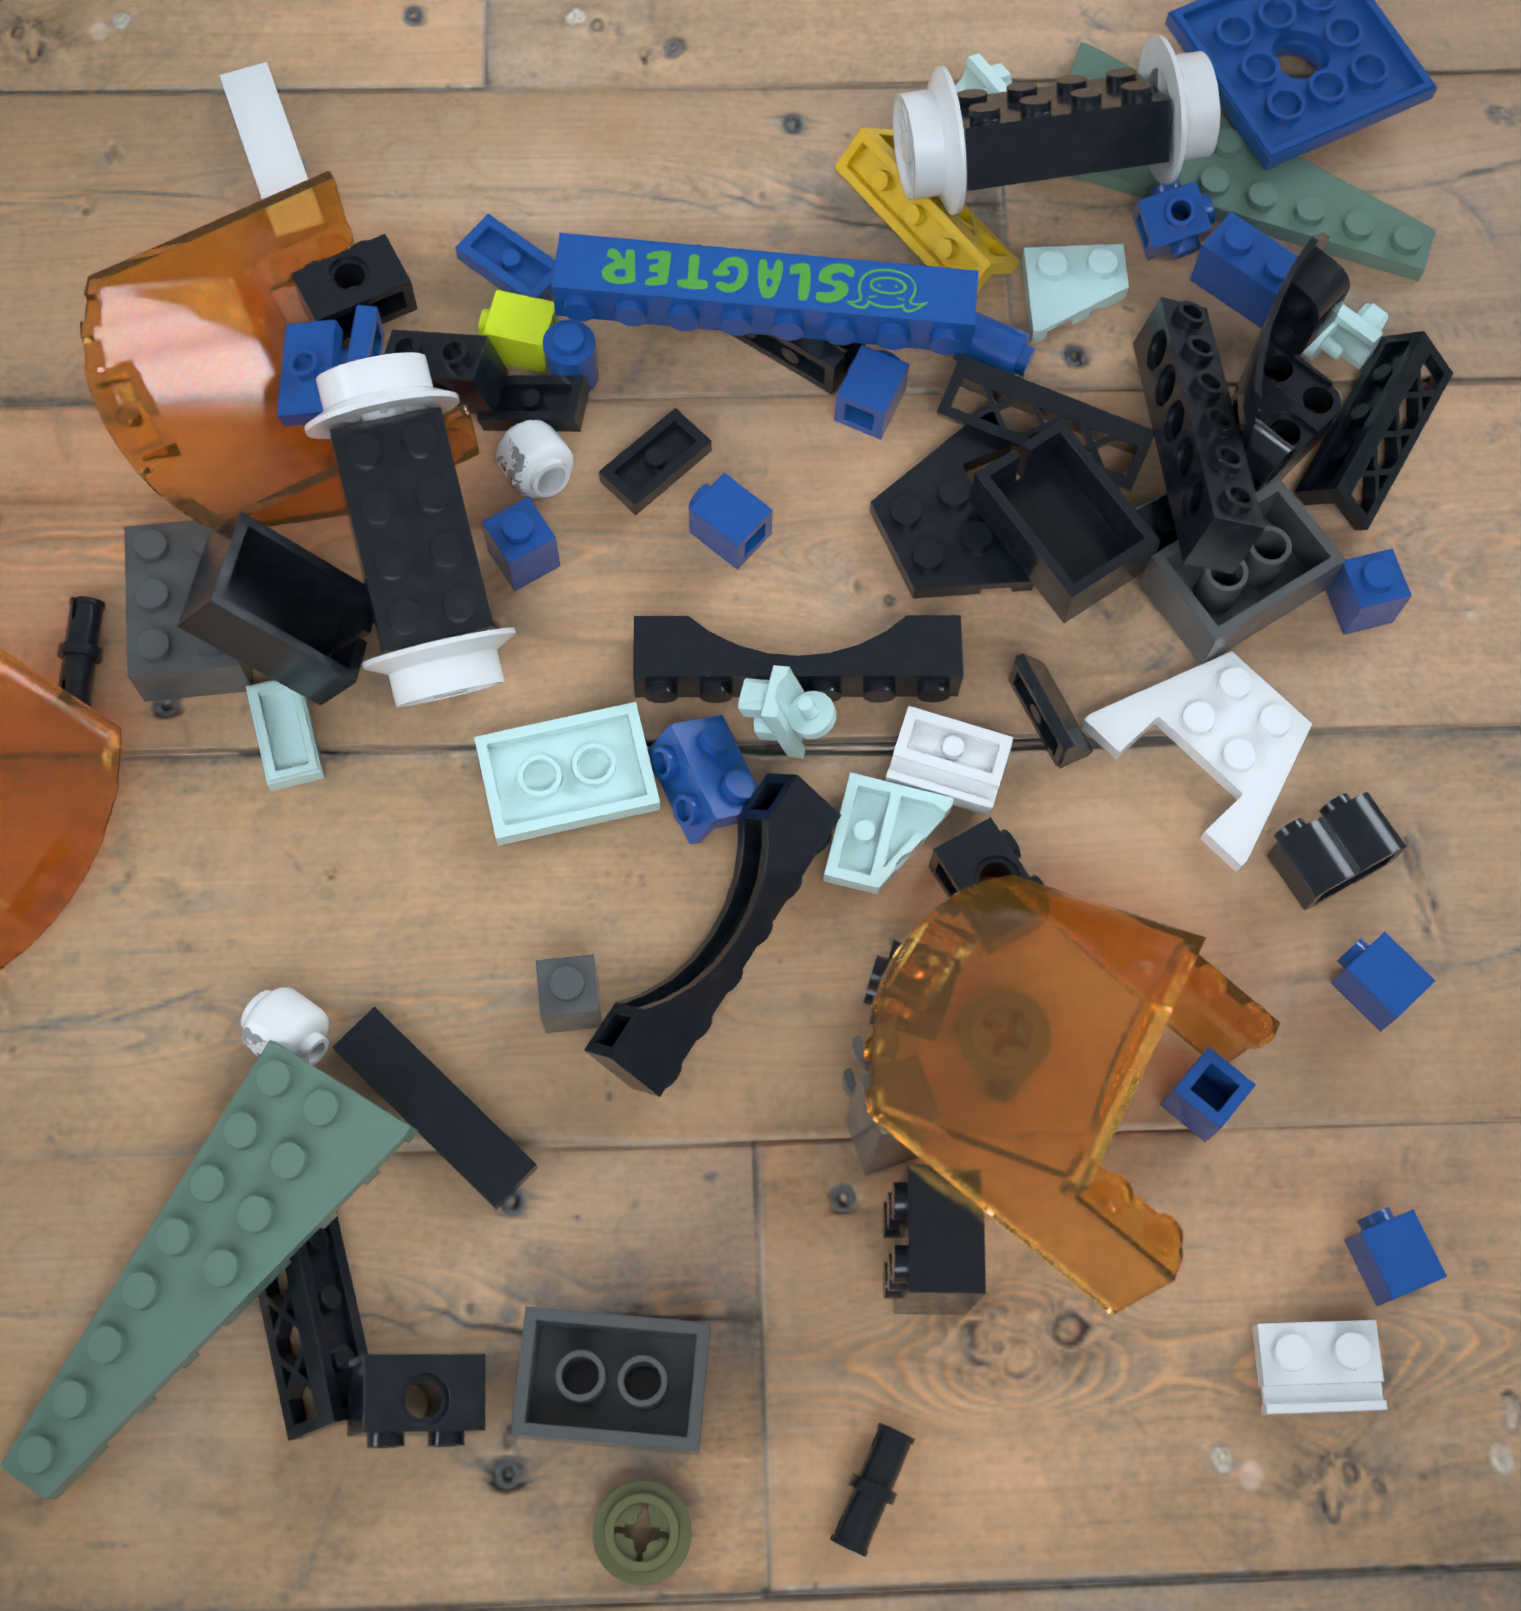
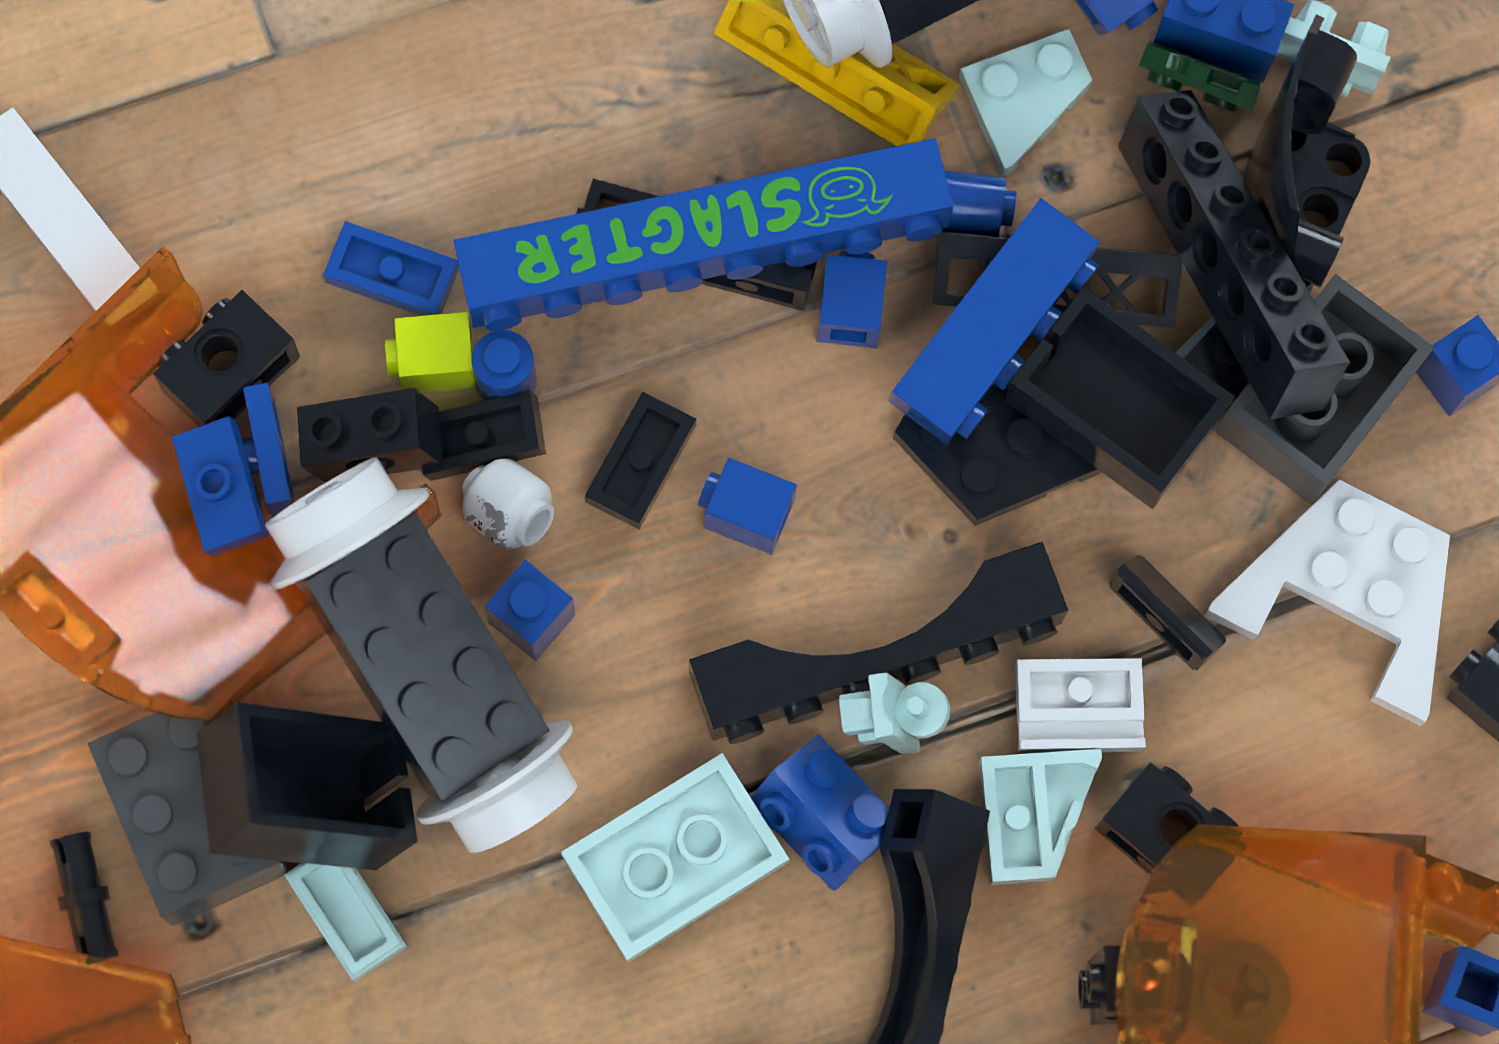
camera: 20 degrees left, 5 degrees up
(977, 429) = (994, 322): none -> blue brick
(1235, 319) = (1221, 85): none -> dark green wing
(1368, 417) = (1404, 157): black fence -> none

